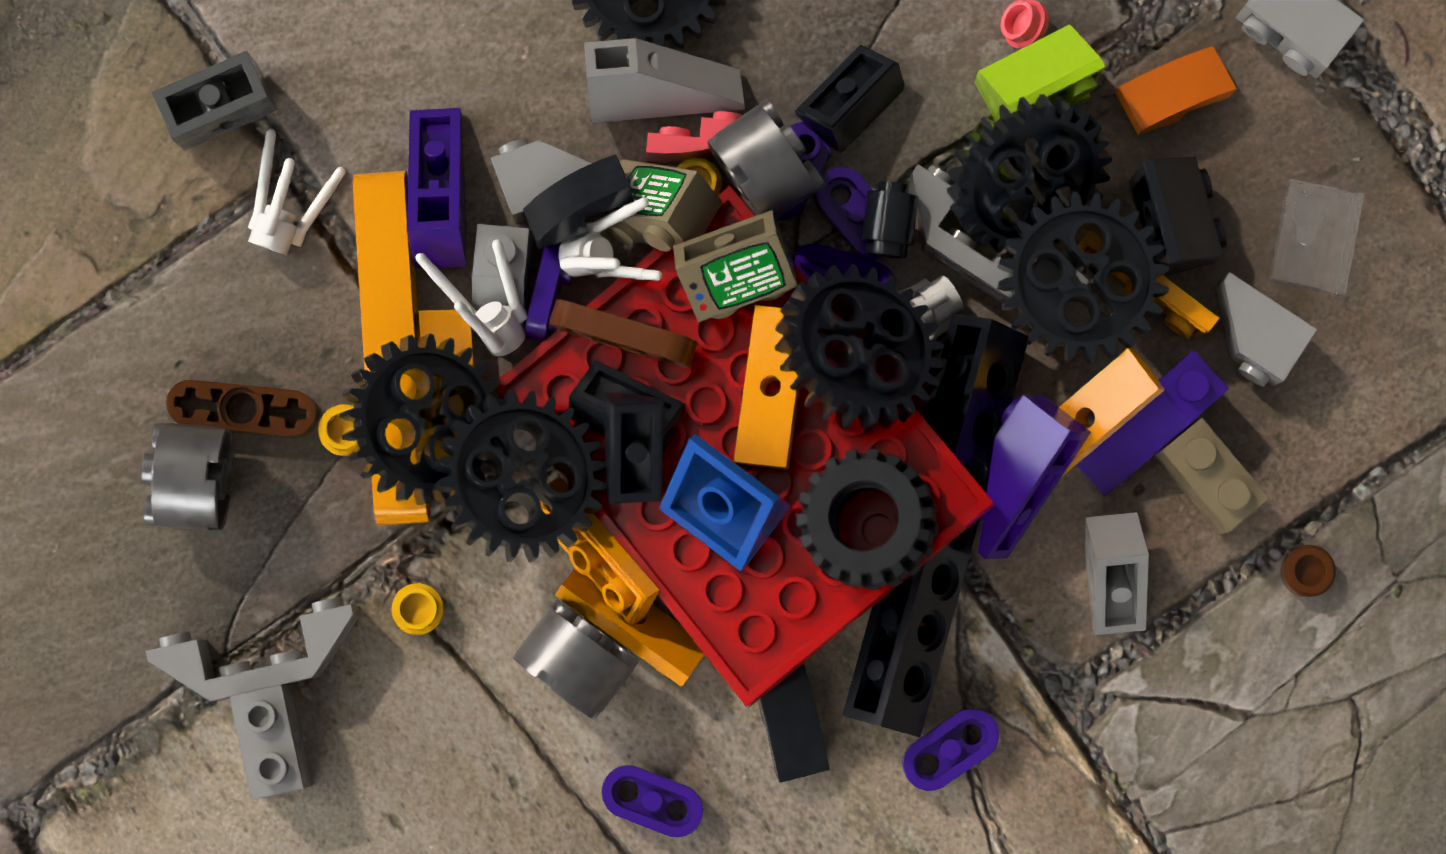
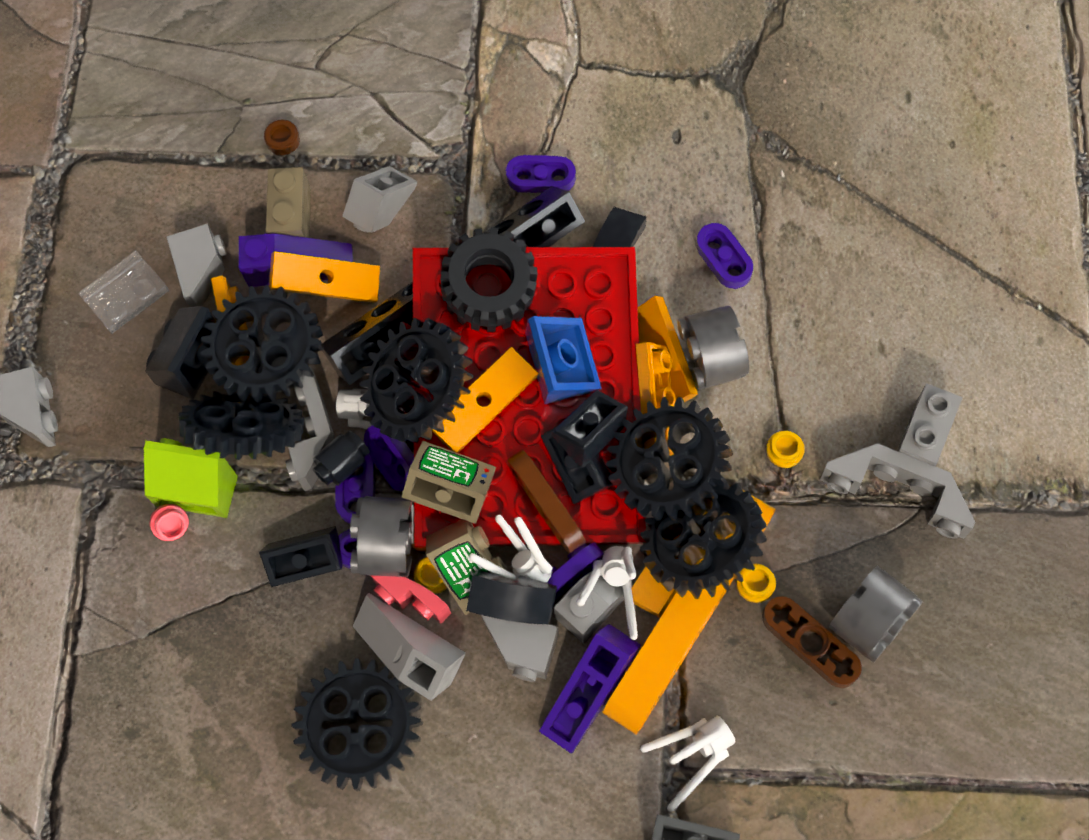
camera: 140 degrees left, 15 degrees down
(1025, 467) = (370, 278): dark purple slope -> none
(1175, 89) = (122, 422): orange slope -> none

